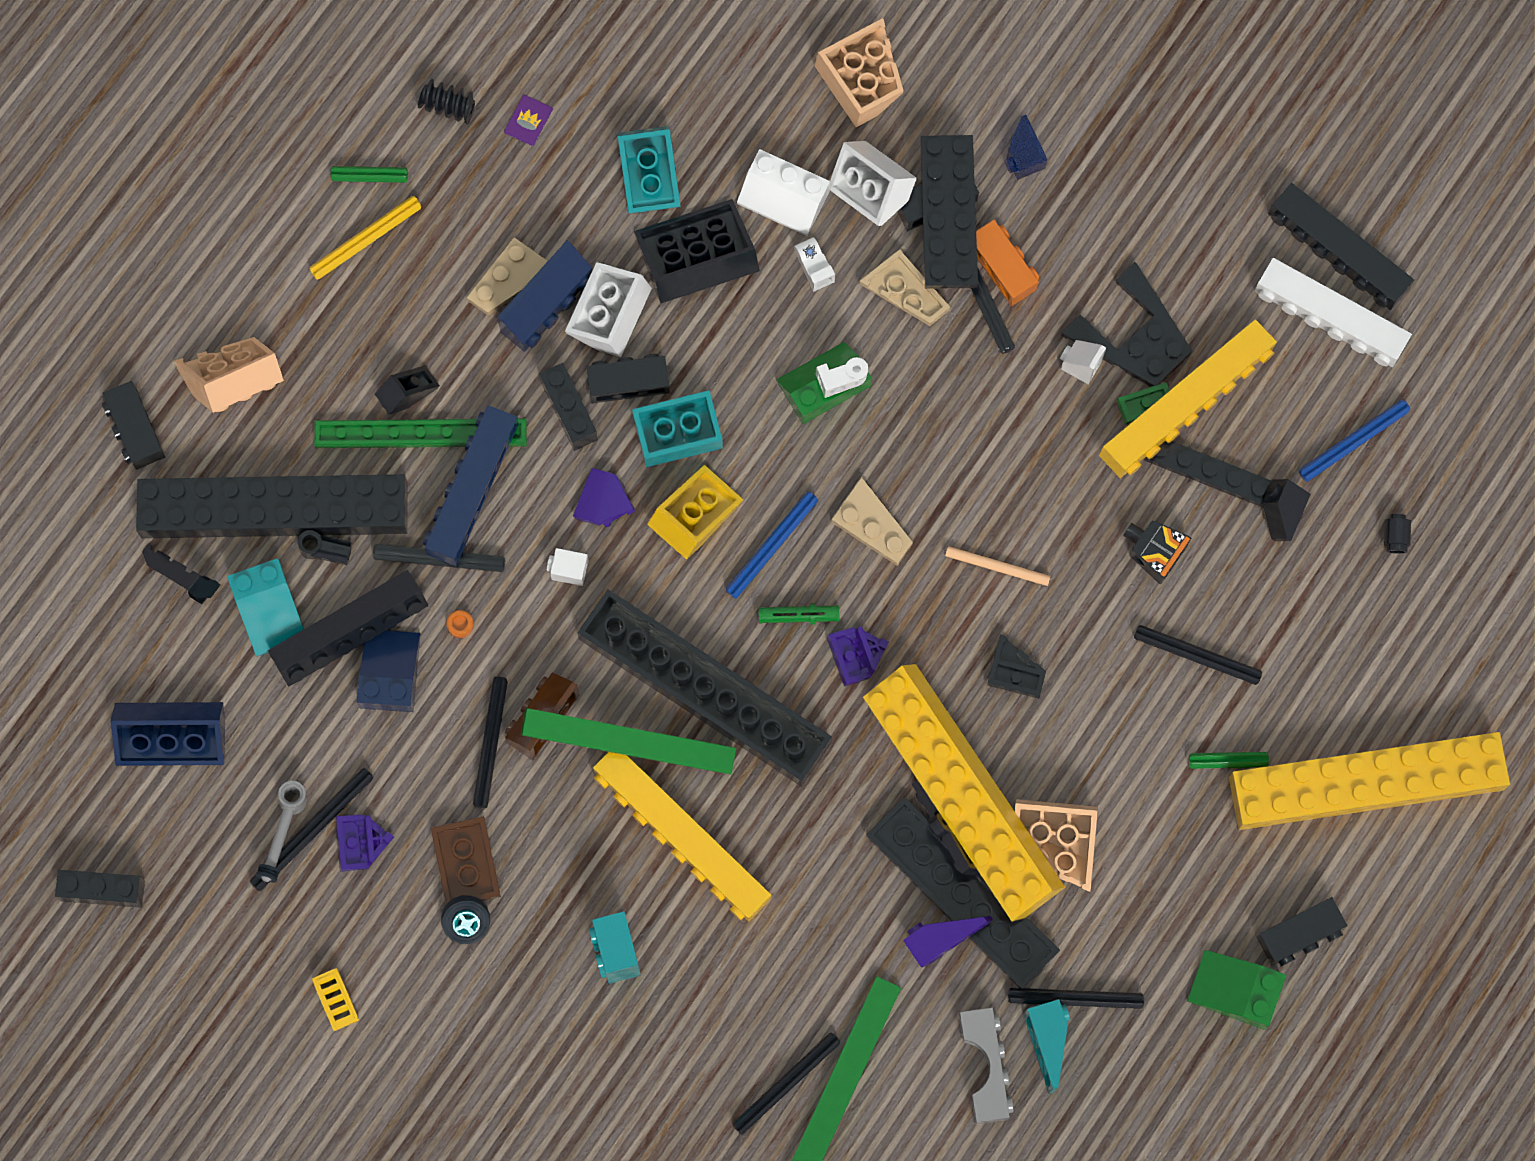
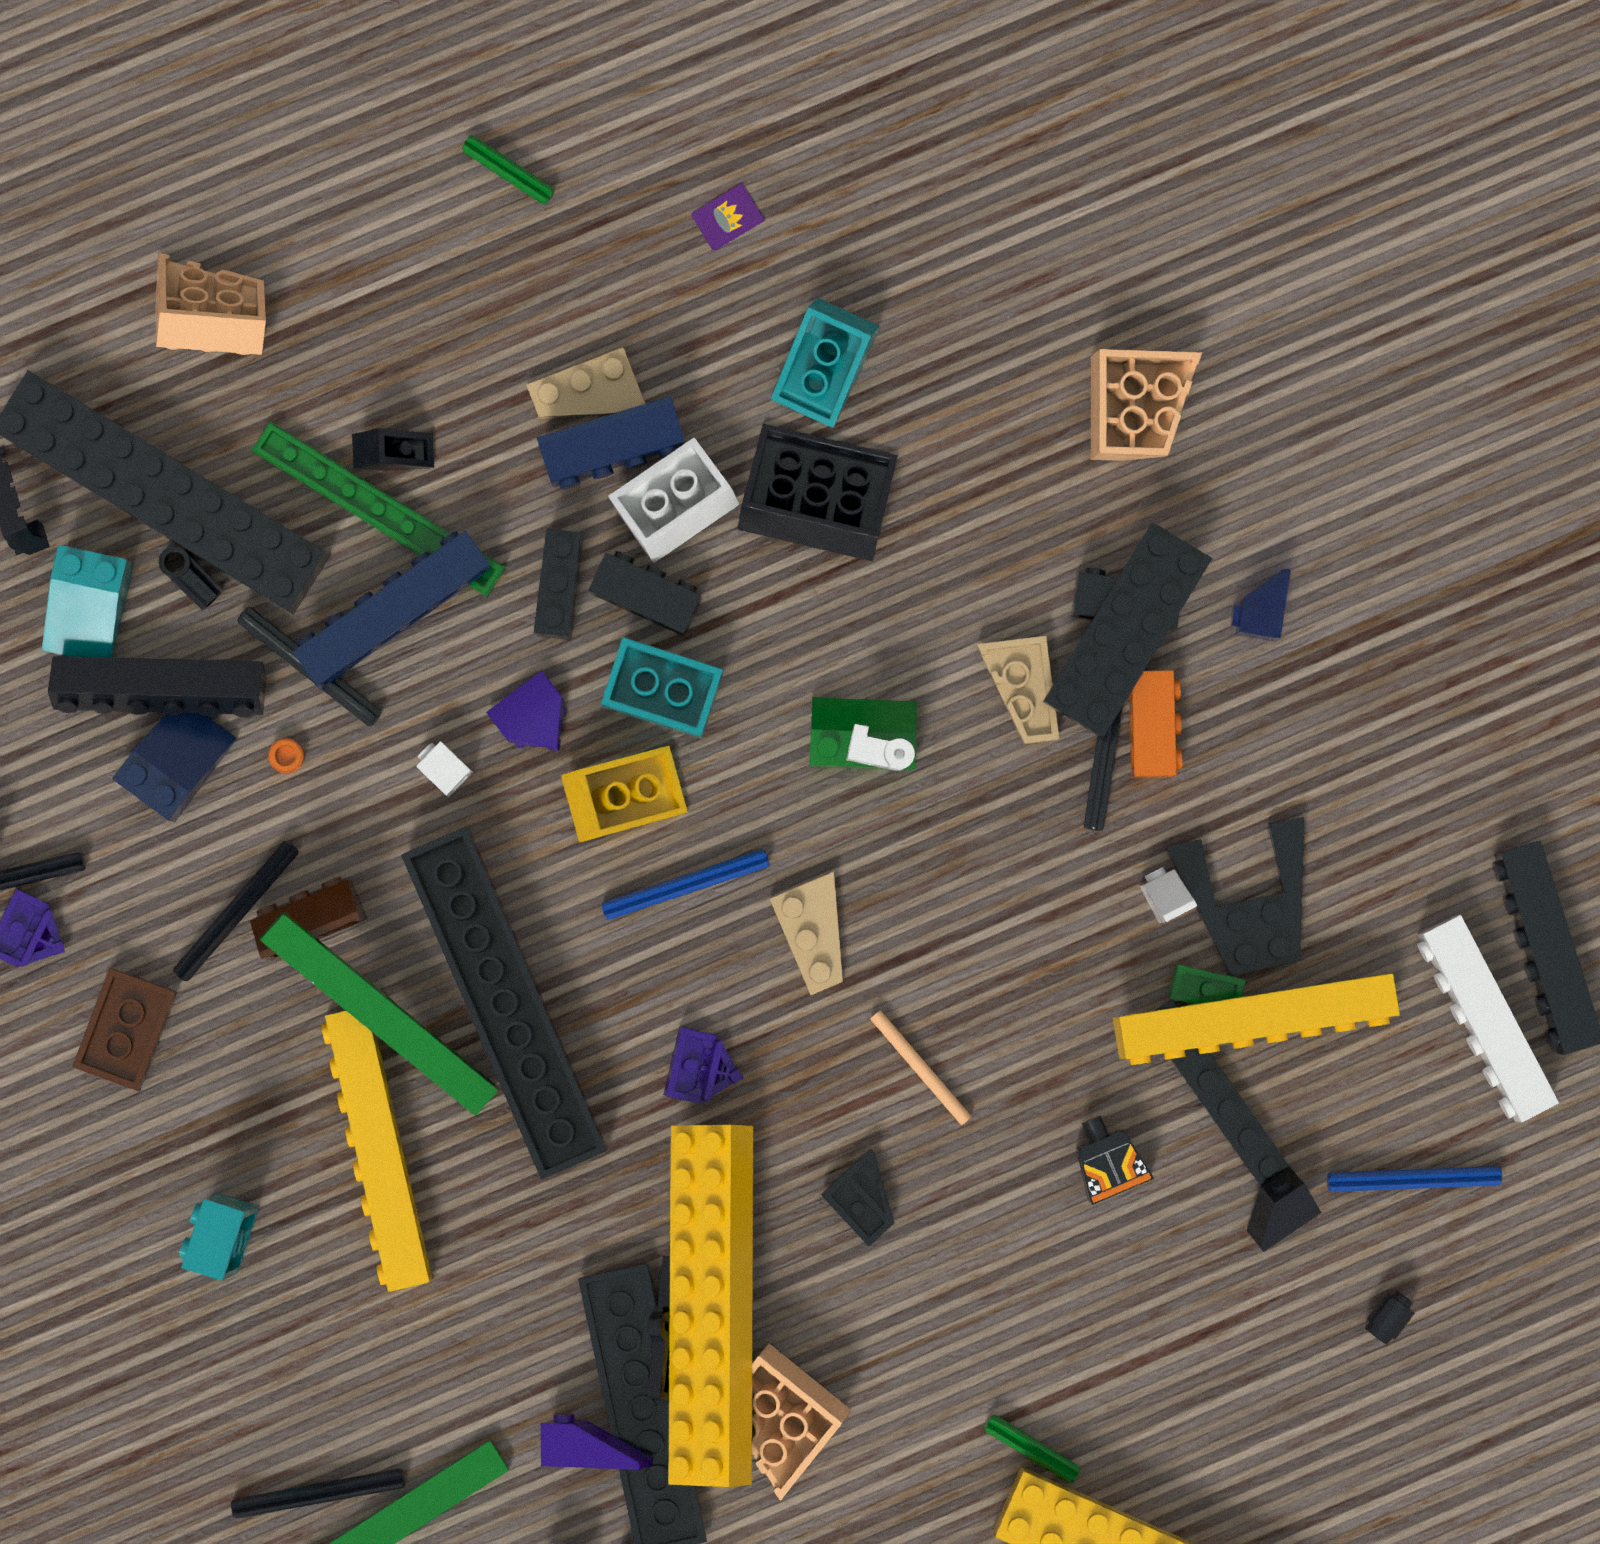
camera: 30 degrees right, 10 degrees up
(132, 425) = (65, 301): black brick -> none
(365, 237) = (457, 242): yellow axle -> none
(447, 101) = (646, 140): black piece -> none
(464, 929) = (71, 1092): black wheel -> none
(783, 192) = (958, 486): white slope -> none
(814, 264) = (939, 591): white leg -> none
(831, 614) = (666, 984): green pin -> none
(871, 181) = (1062, 538): white slope -> none
(1198, 654) = (1076, 1309): black axle -> none

